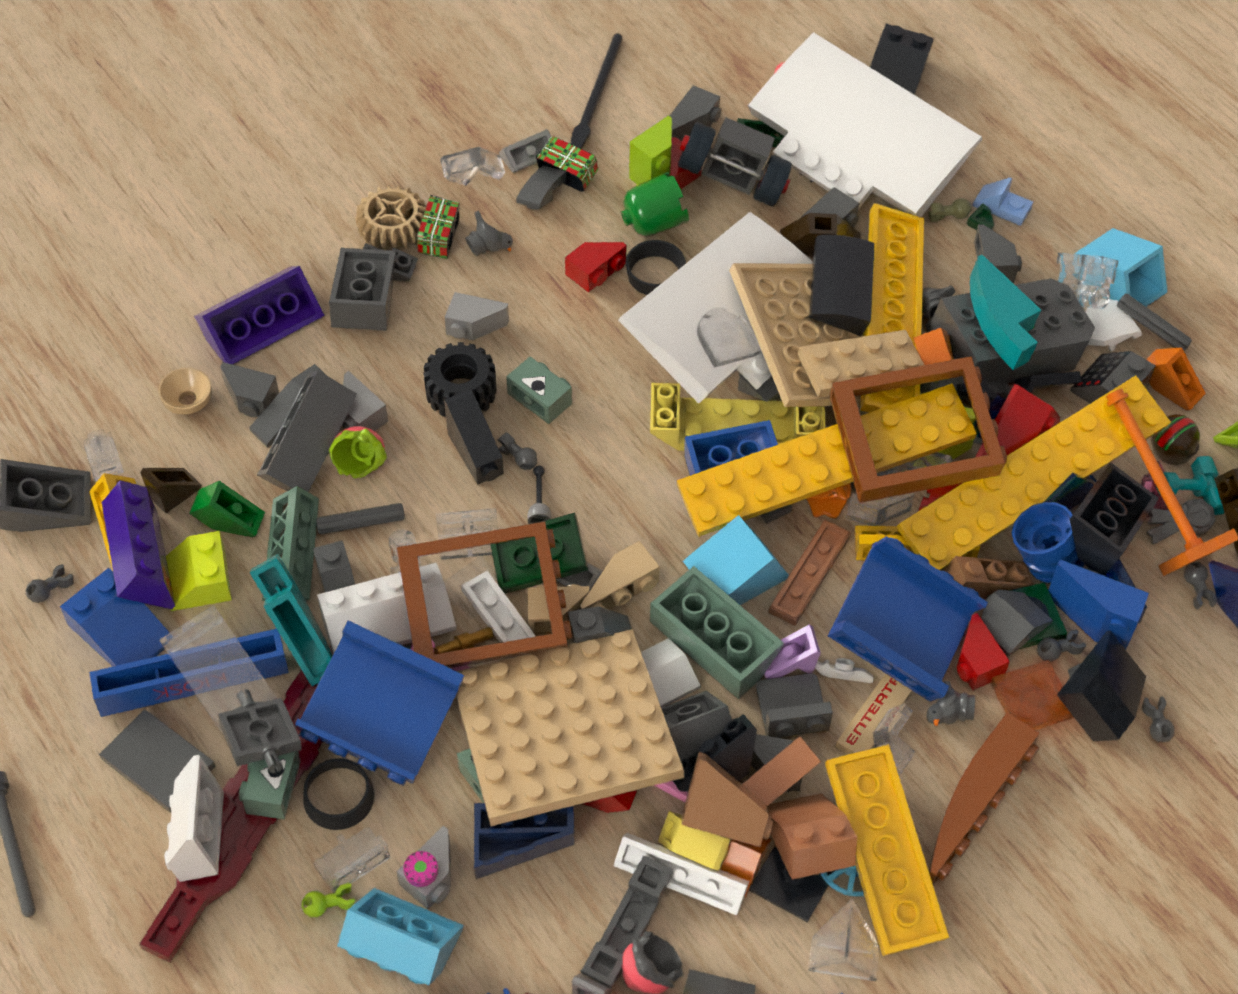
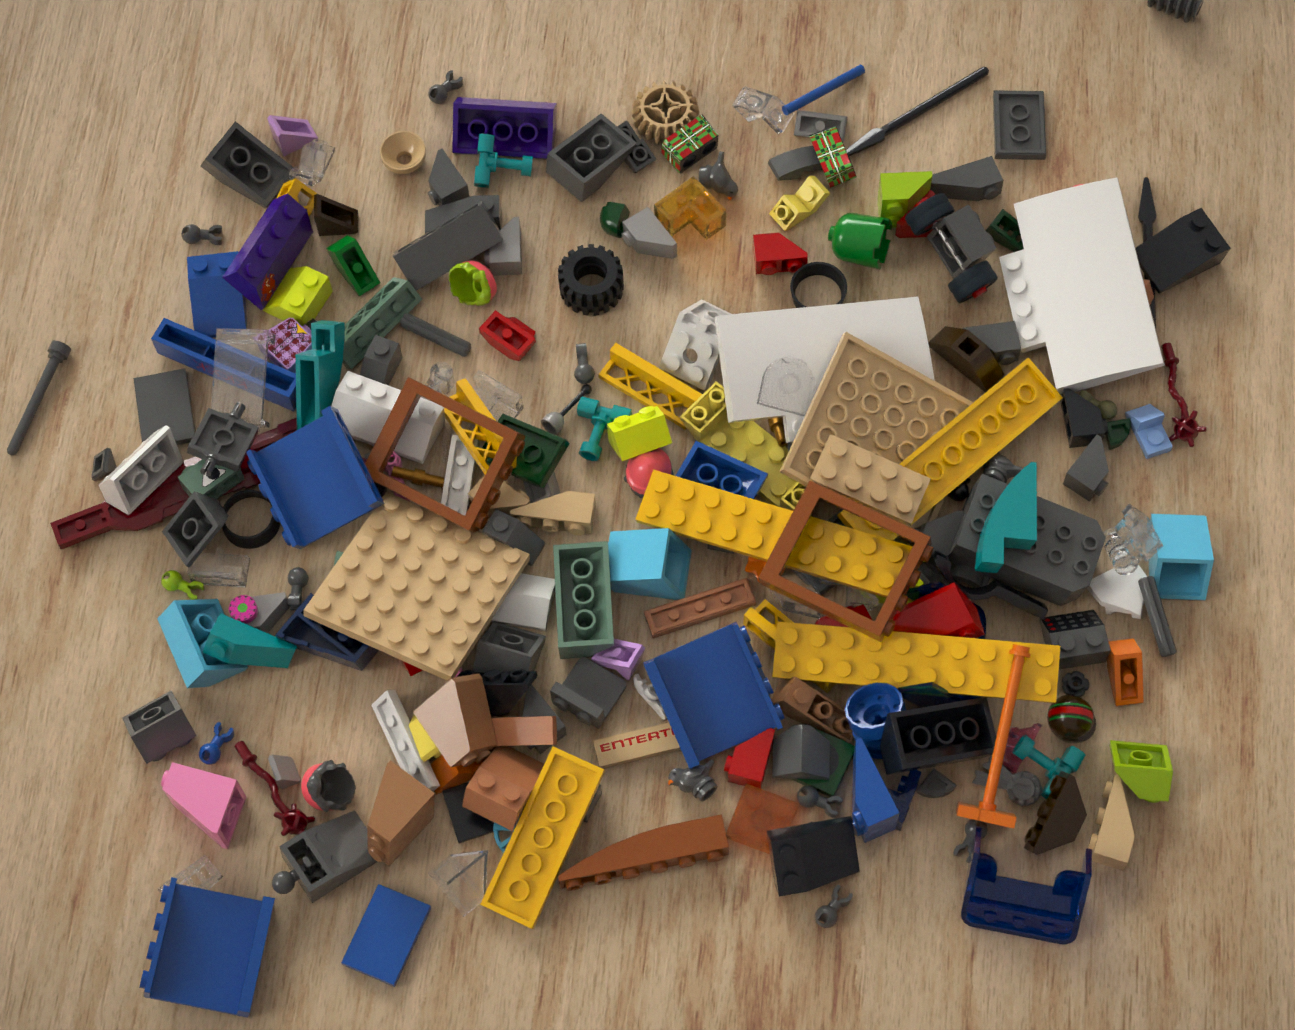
camera: 45 degrees right, 10 degrees up
(56, 445) = (290, 133): none -> lavender slope
(140, 853) = (103, 464): none -> dark grey slope
(169, 326) = (439, 93): none -> dark grey arm
(238, 607) = (289, 340): none -> torso
(275, 347) = (489, 161): none -> teal bar
(304, 832) = (195, 526): none -> dark grey slope
(428, 324) = (612, 218): none -> dark green piece
(430, 475) = (508, 335): none -> red slope
(437, 810) = (297, 579): none -> dark grey arm
(451, 899) = (245, 645): none -> teal slope
(473, 437) = (557, 331): black slope -> none
(494, 268) = (691, 205): none -> clear yellow brick
(507, 123) = (823, 89): none -> blue bar
(510, 556) = (466, 395): none -> yellow fence
(539, 389) = (641, 326): sand green brick -> none
(574, 215) = (795, 208): none -> light yellow slope
(579, 483) = (600, 417): none -> teal bar
(593, 423) = (652, 376): none -> yellow fence
(600, 354) = (694, 330): none -> white bracket
(630, 465) = (638, 433): none -> neon yellow slope
(630, 919) = (345, 749): dark grey slope -> none
(660, 496) = (641, 467): none -> coral hair
(683, 58) = (1019, 125): none -> dark grey tile
(730, 388) = (776, 426): none -> pearl gold bar
(740, 932) = (398, 815): none -> medium nougat slope
(842, 282) = (928, 404): black slope -> none
(887, 734) = (618, 780): clear slope -> none
(934, 346) = (936, 513): orange slope -> none
(951, 226) = (1081, 419): none -> black slope
(1028, 182) = (1187, 427): none -> dark red piece
(1134, 563) = (936, 785): none -> dark grey tile

